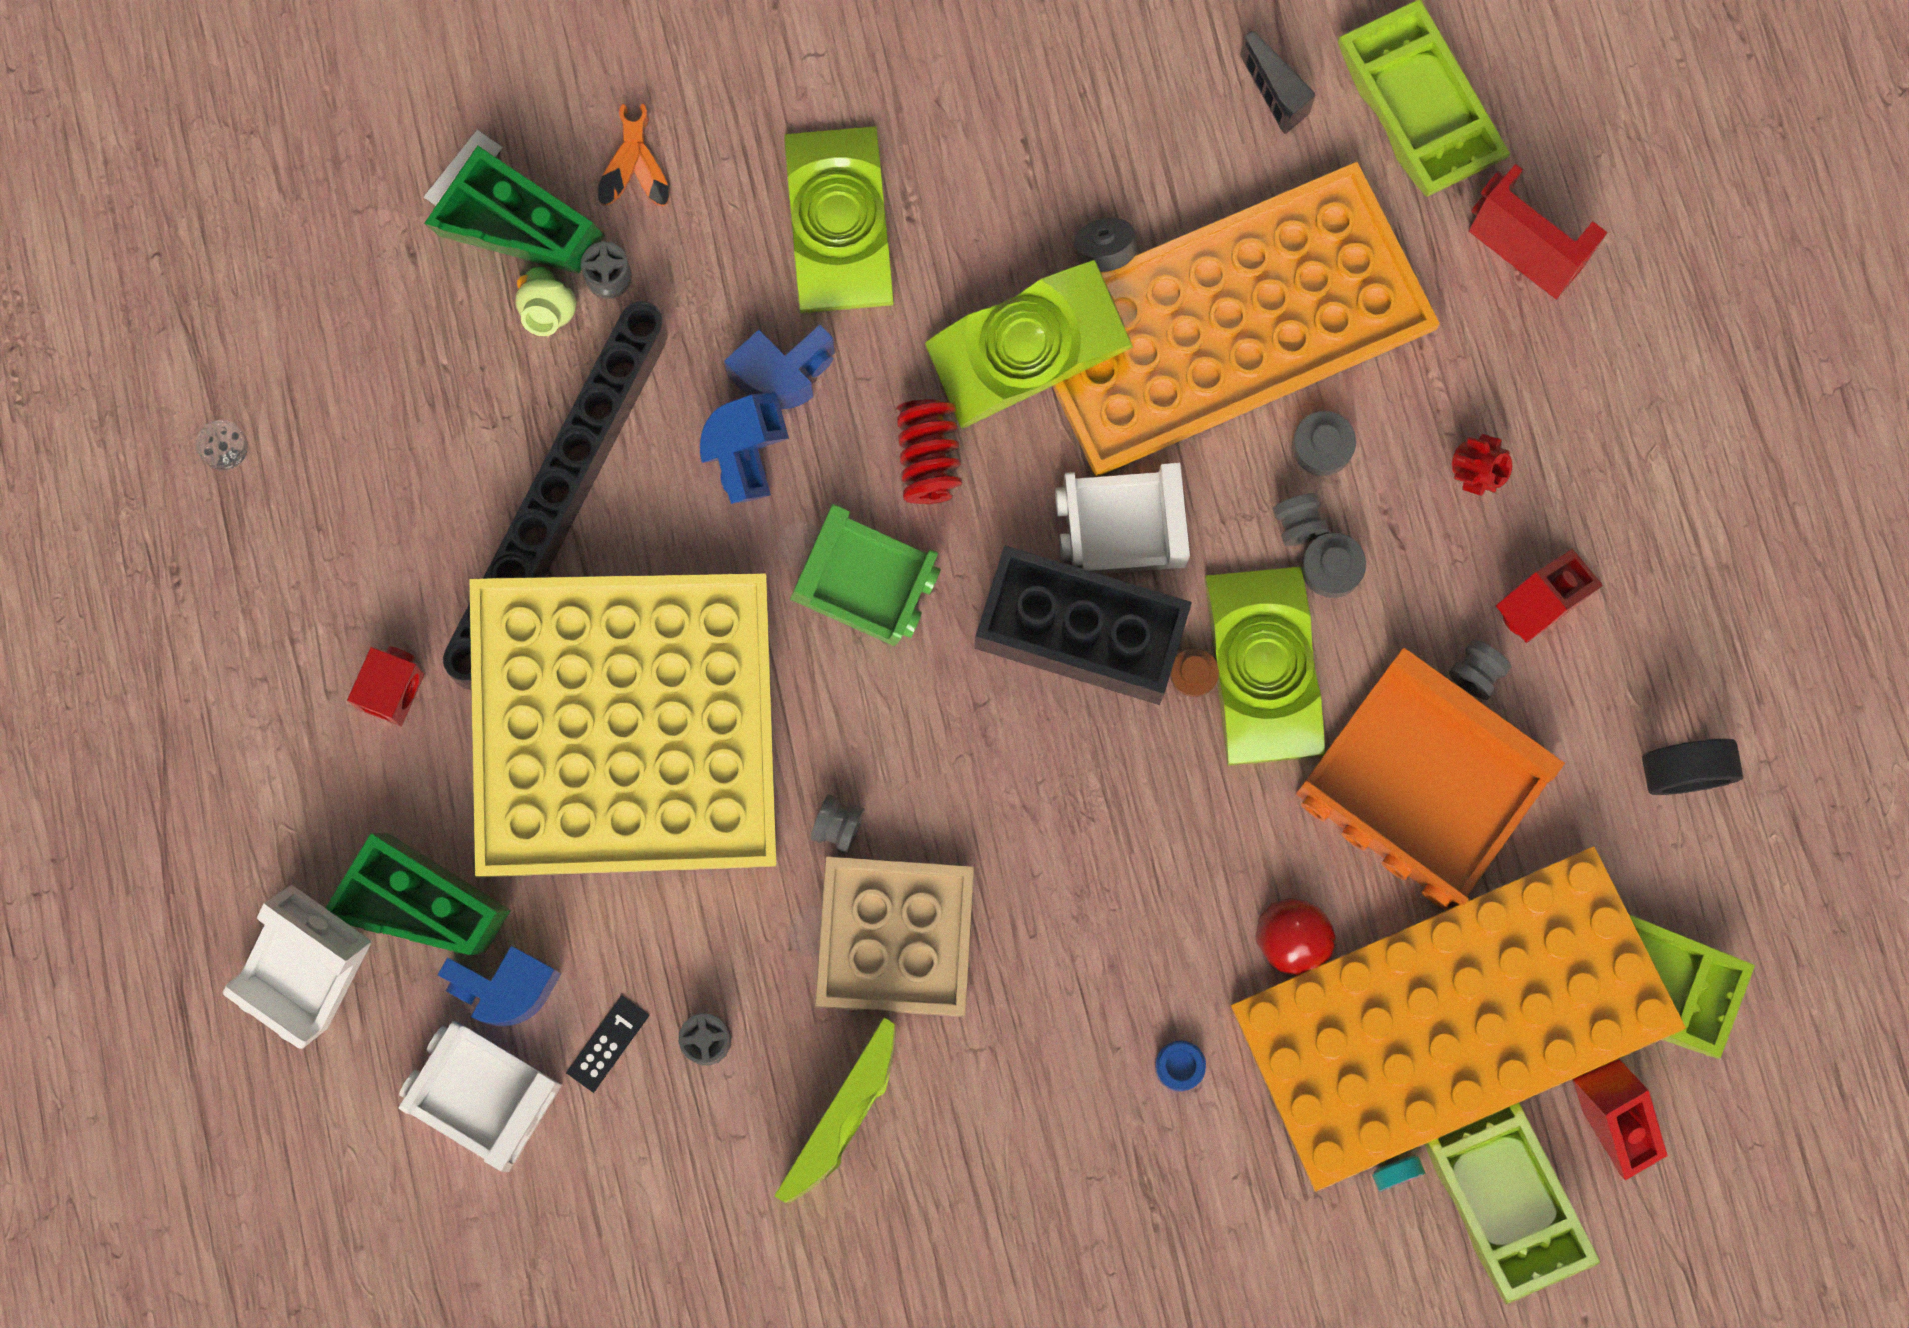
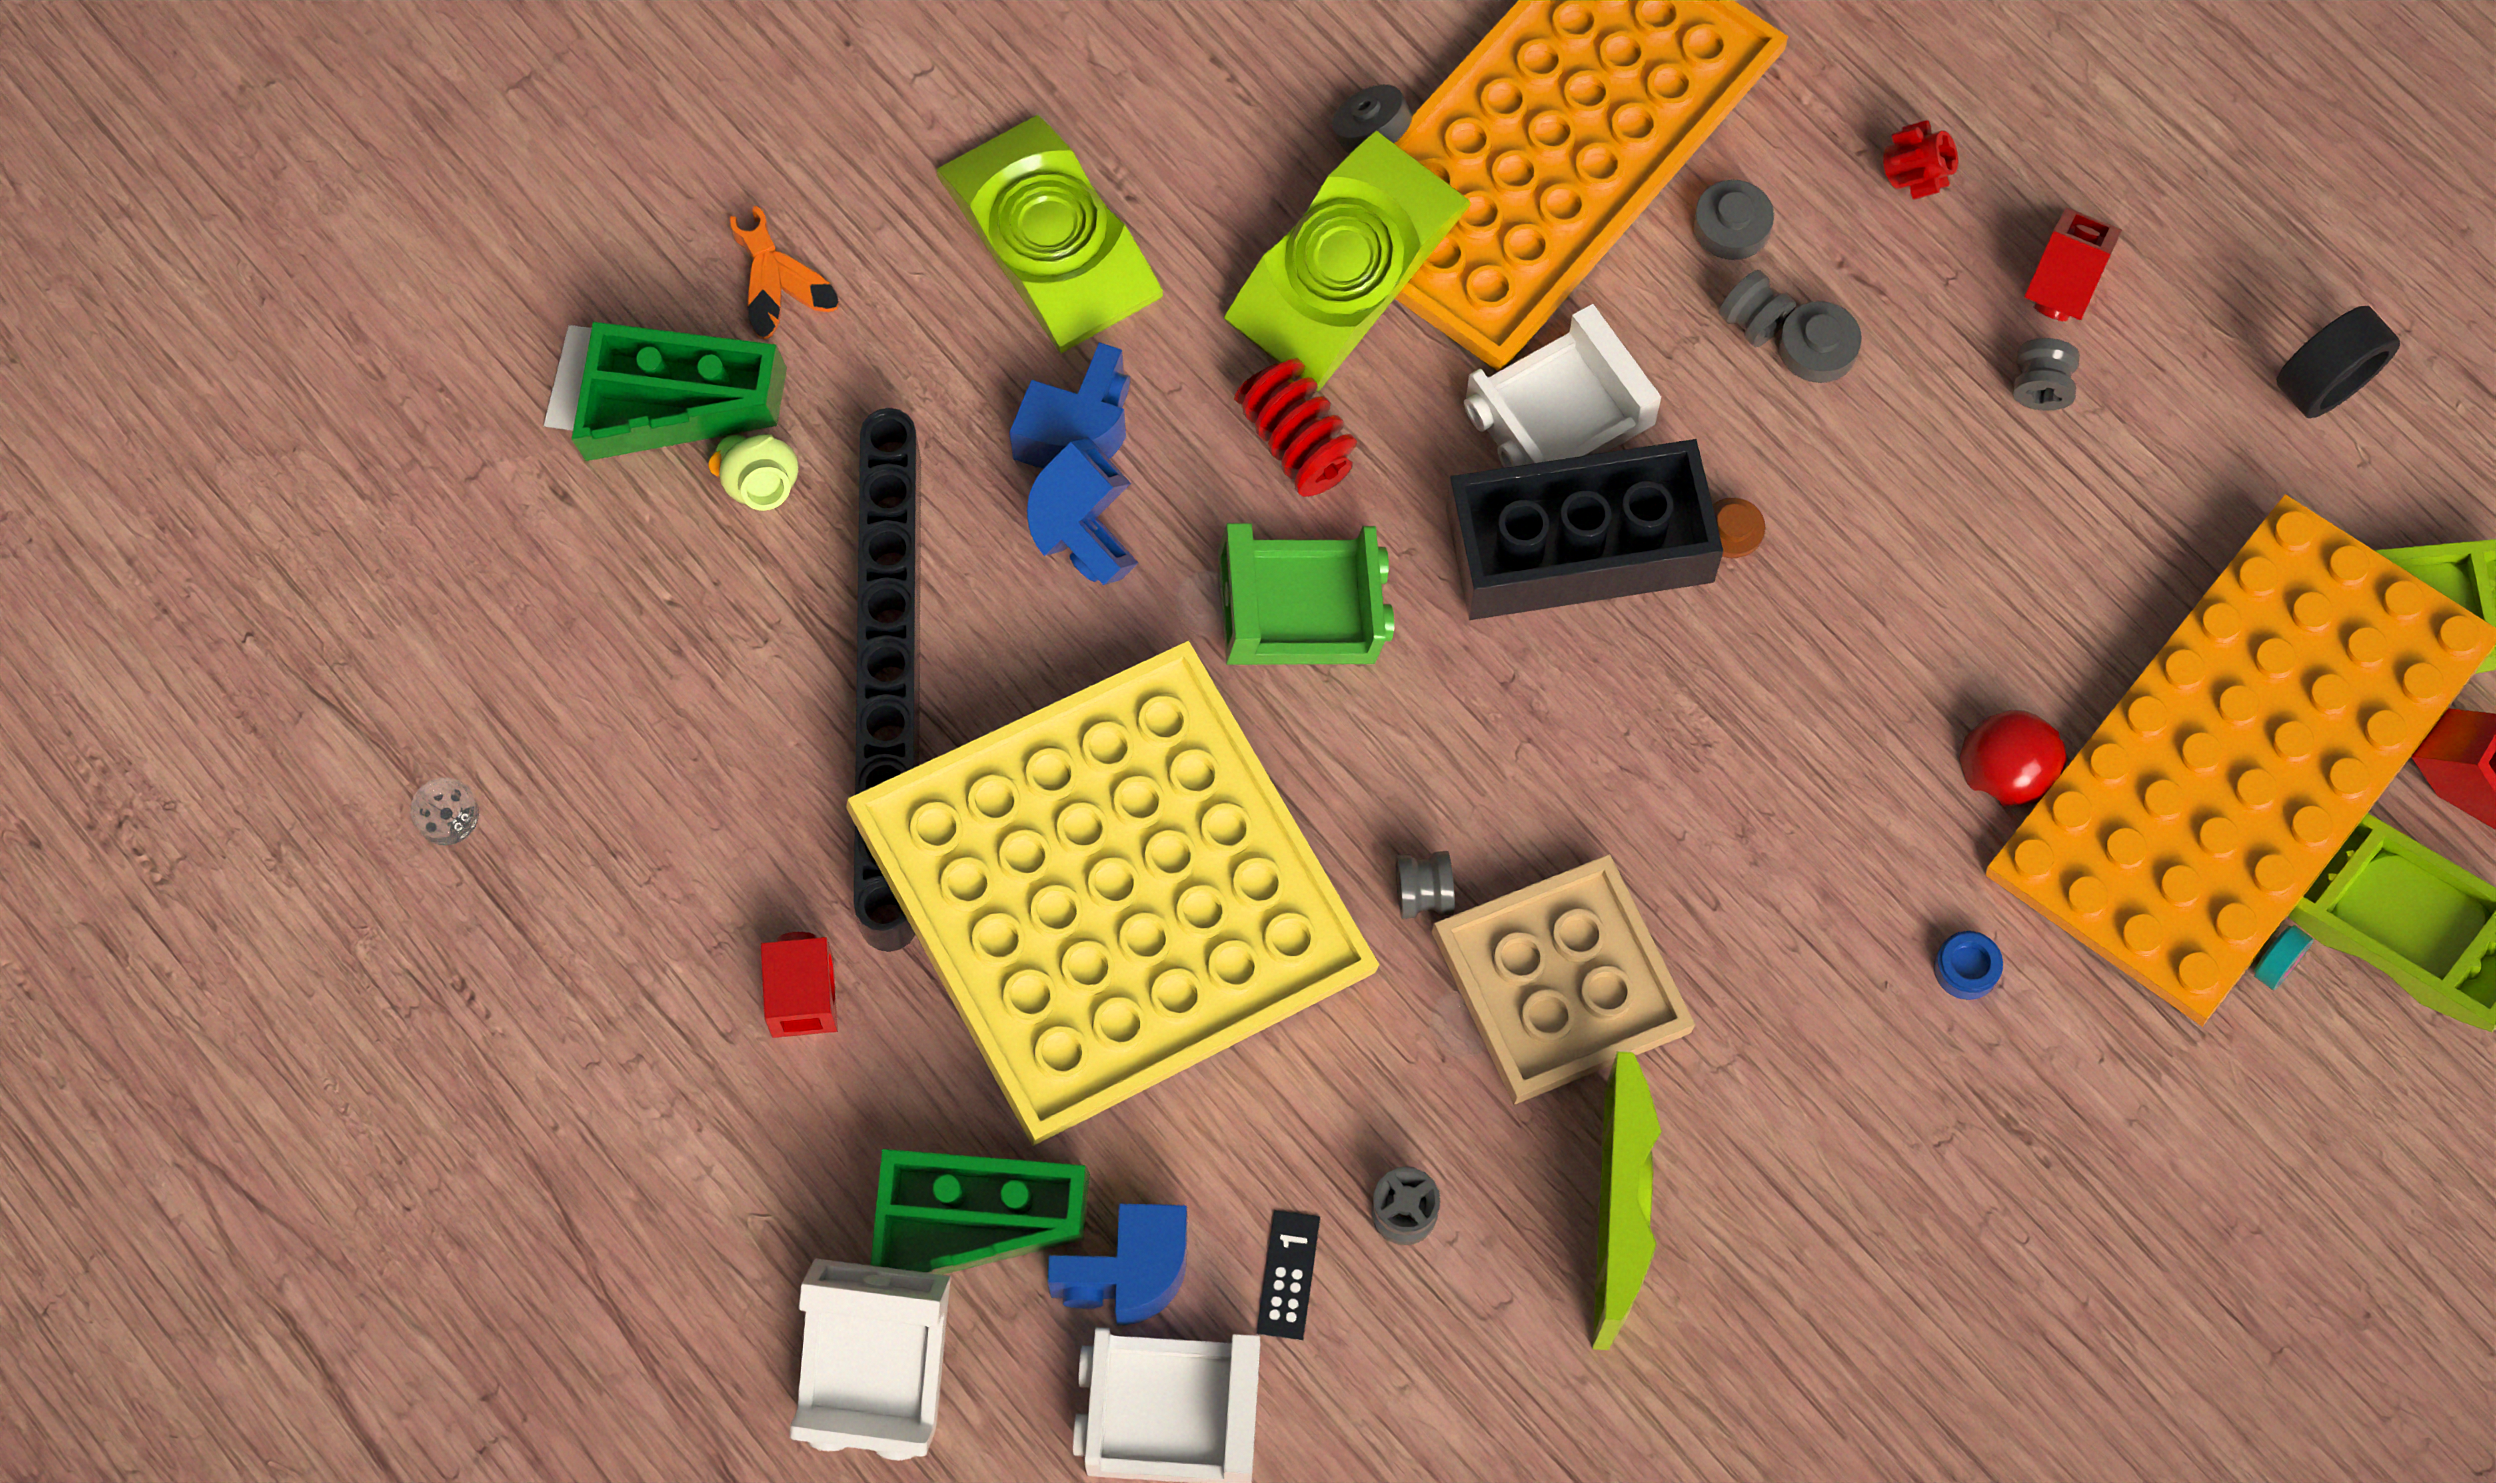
camera: 25 degrees left, 10 degrees down
(603, 259) = (811, 389): dark grey wheel -> none
(1265, 666) = (1819, 496): lime slope -> none
(1428, 780) = (2058, 516): orange panel -> none

